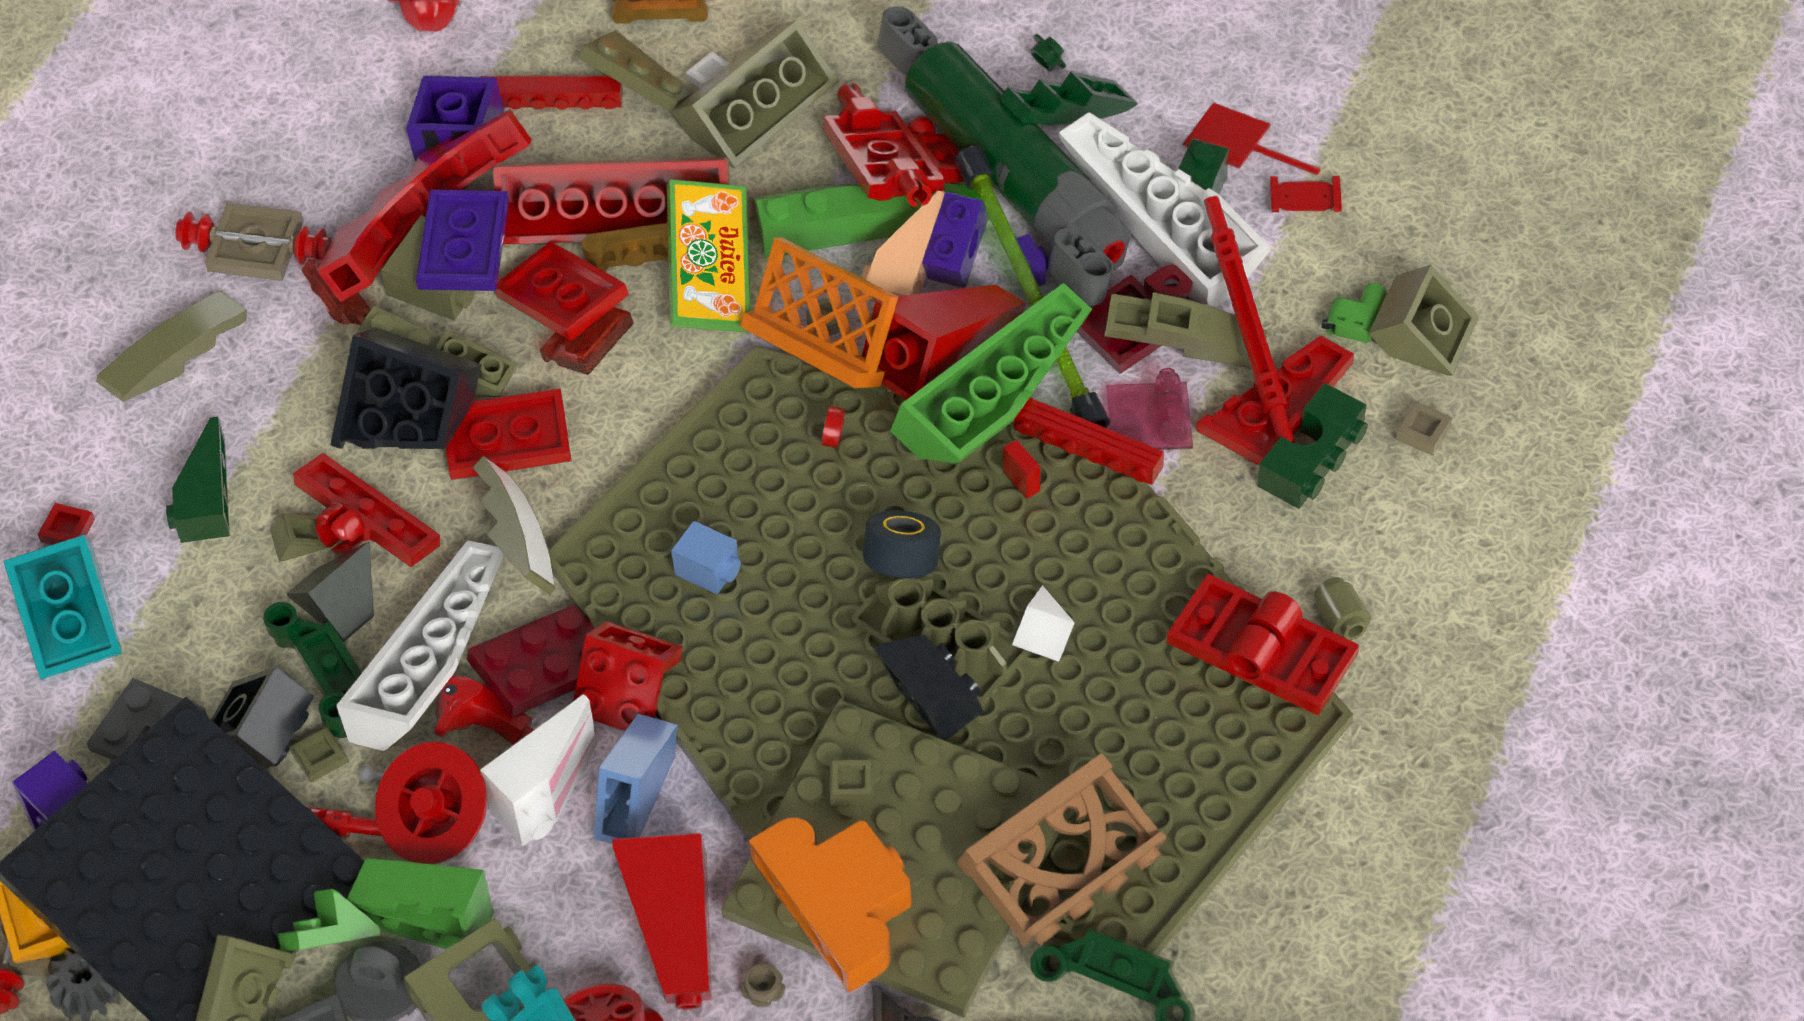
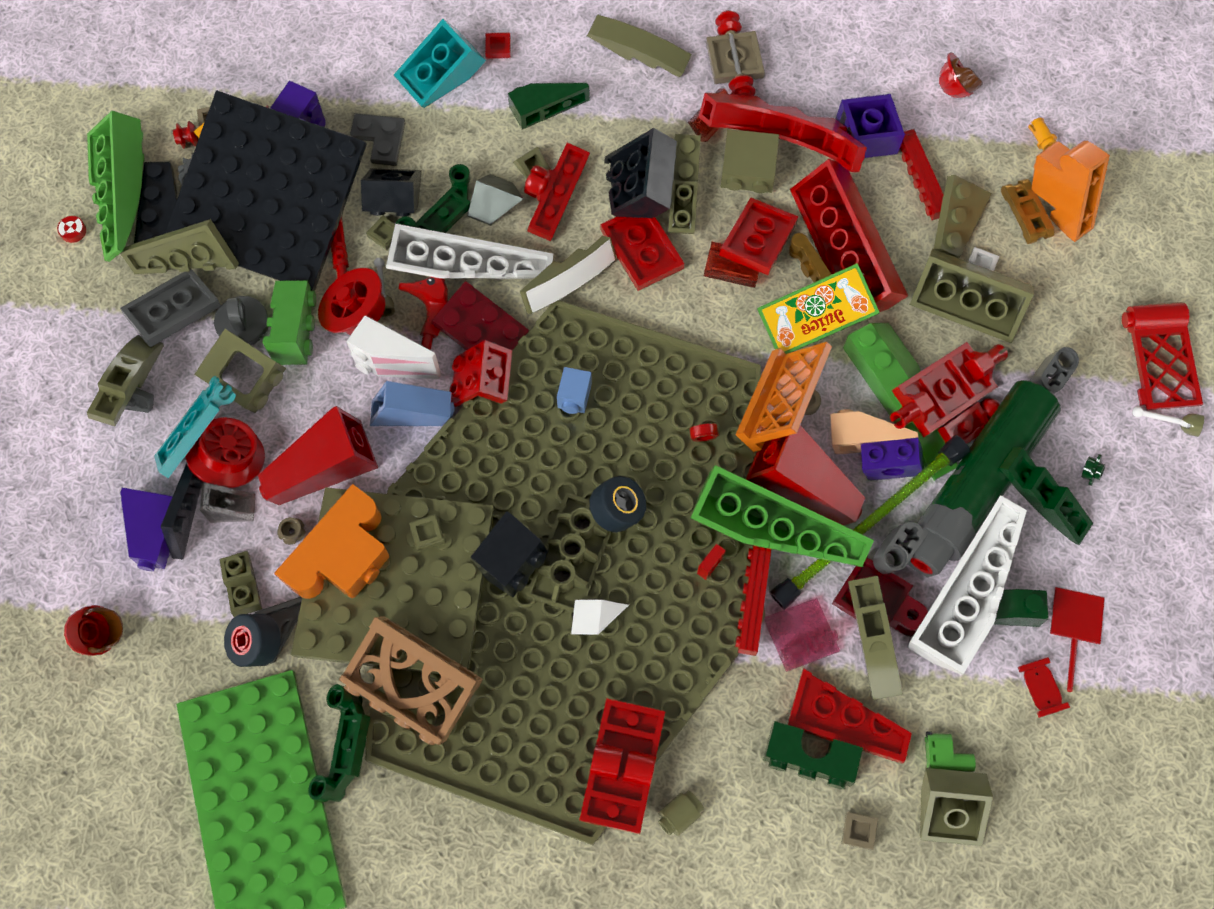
camera: 70 degrees right, 15 degrees up
(335, 923) = (257, 284): bright green slope -> none
(462, 240) = (766, 164): dark purple tile -> none
(1035, 257) = (901, 514): dark purple plate -> none
(1248, 319) = (892, 677): red axle -> none

